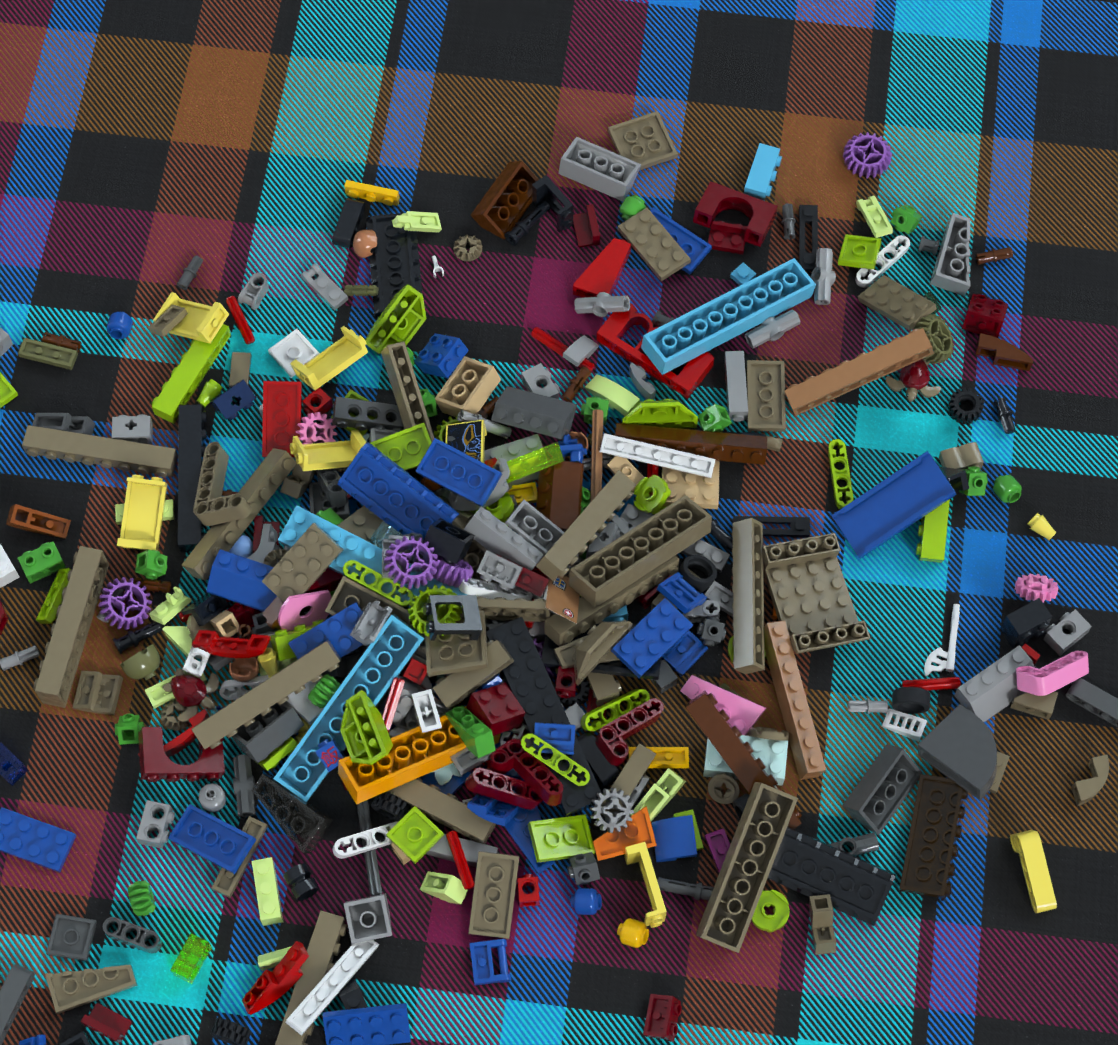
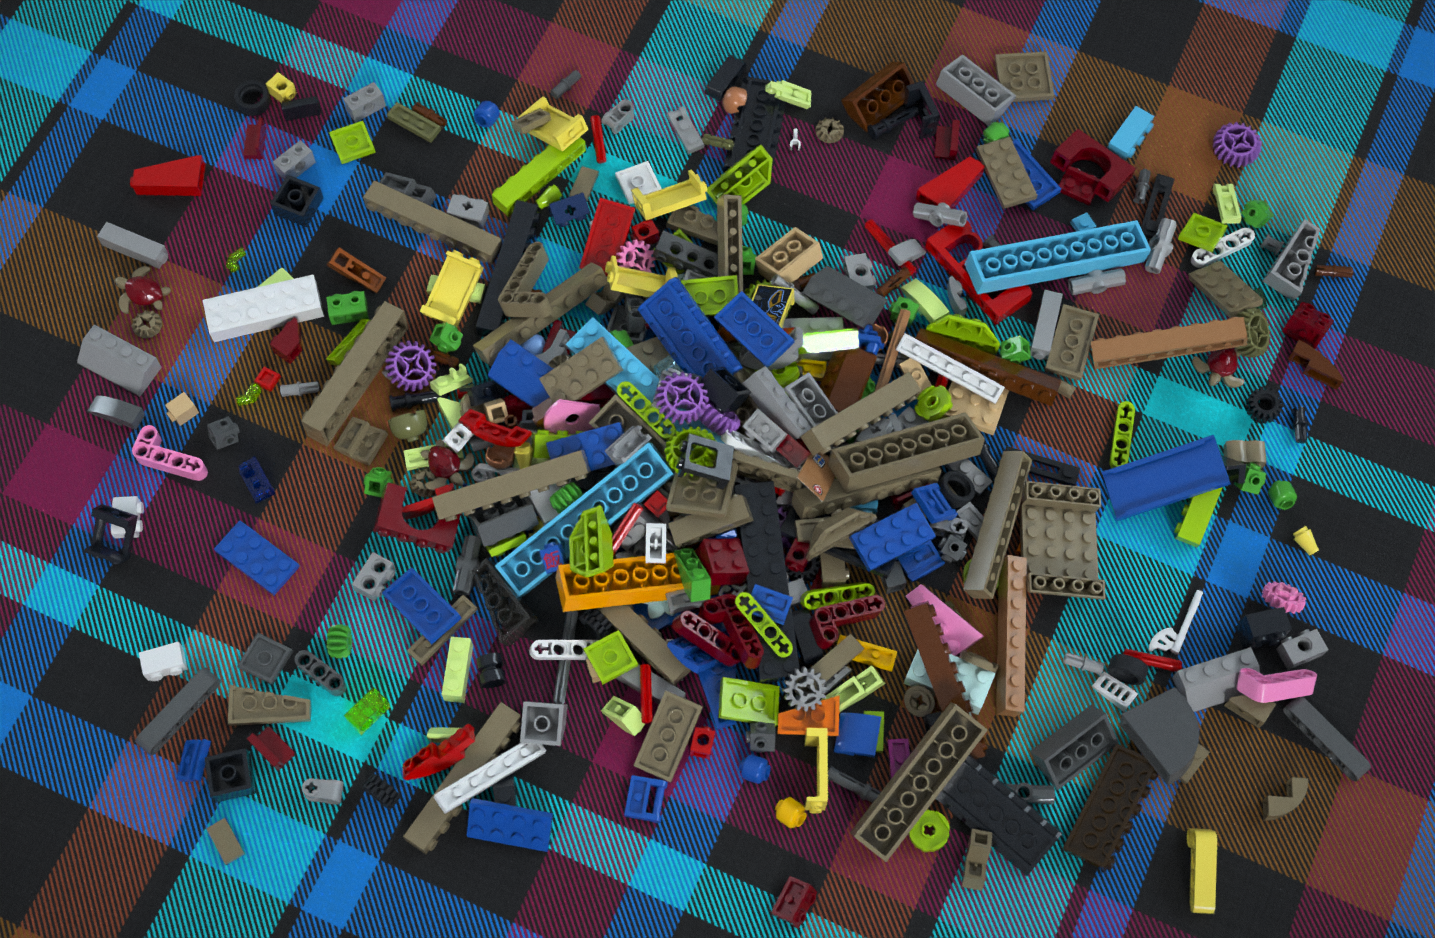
camera: 15 degrees right, 0 degrees up
(212, 797) = (434, 567): light grey head -> none
(364, 380) = (694, 224): none -> dark tan wing
(372, 193) = (755, 56): yellow plate -> none
(441, 355) = (773, 220): blue brick -> none
(1031, 653) = (1262, 661): red tile -> none

